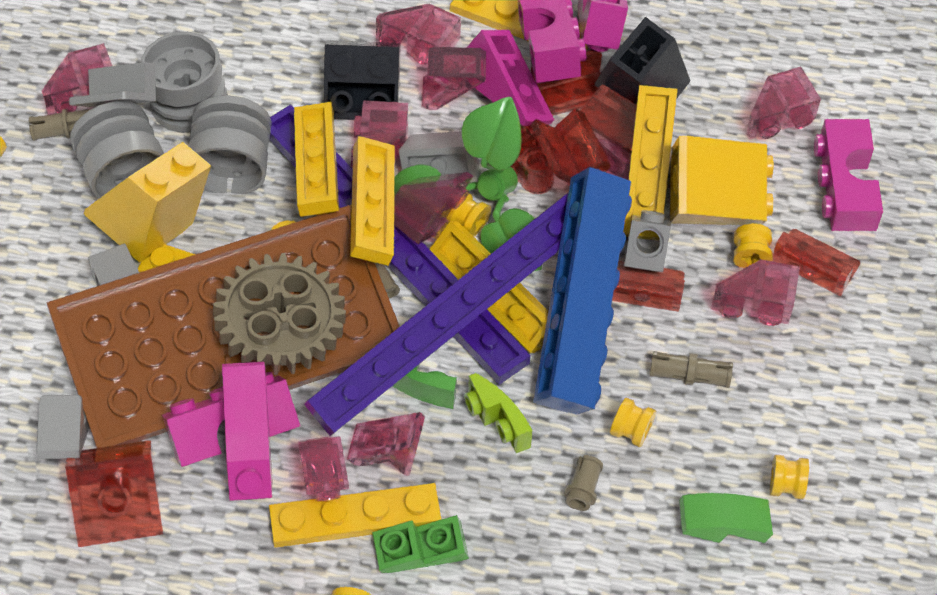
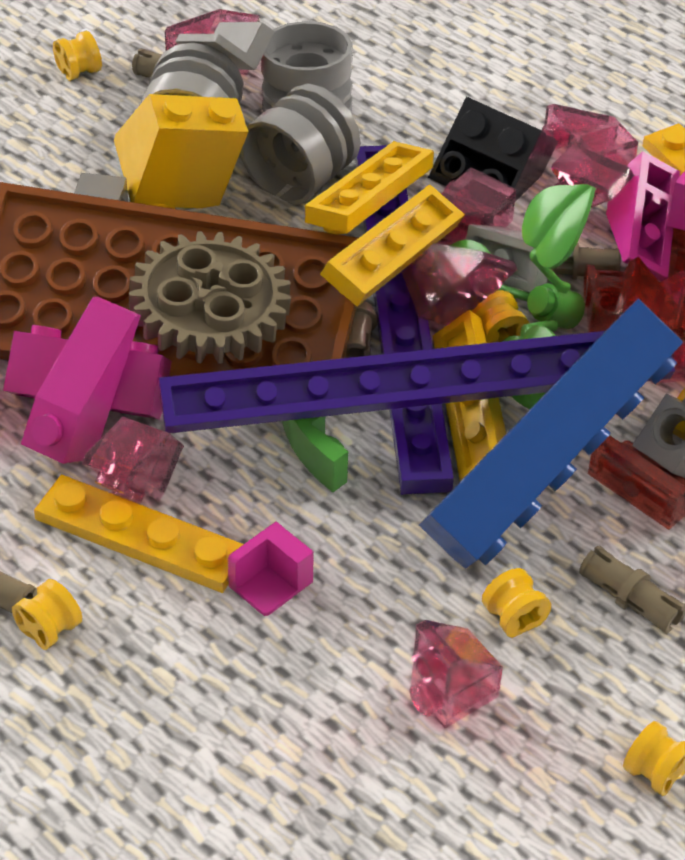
camera: 35 degrees right, 10 degrees down
(387, 440) = (234, 479): clear pink slope -> none
(416, 547) = (173, 595): bright green slope -> none
(466, 490) = (270, 569): none -> dark pink panel
(495, 406) = (370, 513): lime slope -> none
(584, 483) = (397, 640): dark tan pin -> none
(636, 498) = (451, 672): none -> clear pink slope
(719, 514) = (536, 747): bright green slope -> none

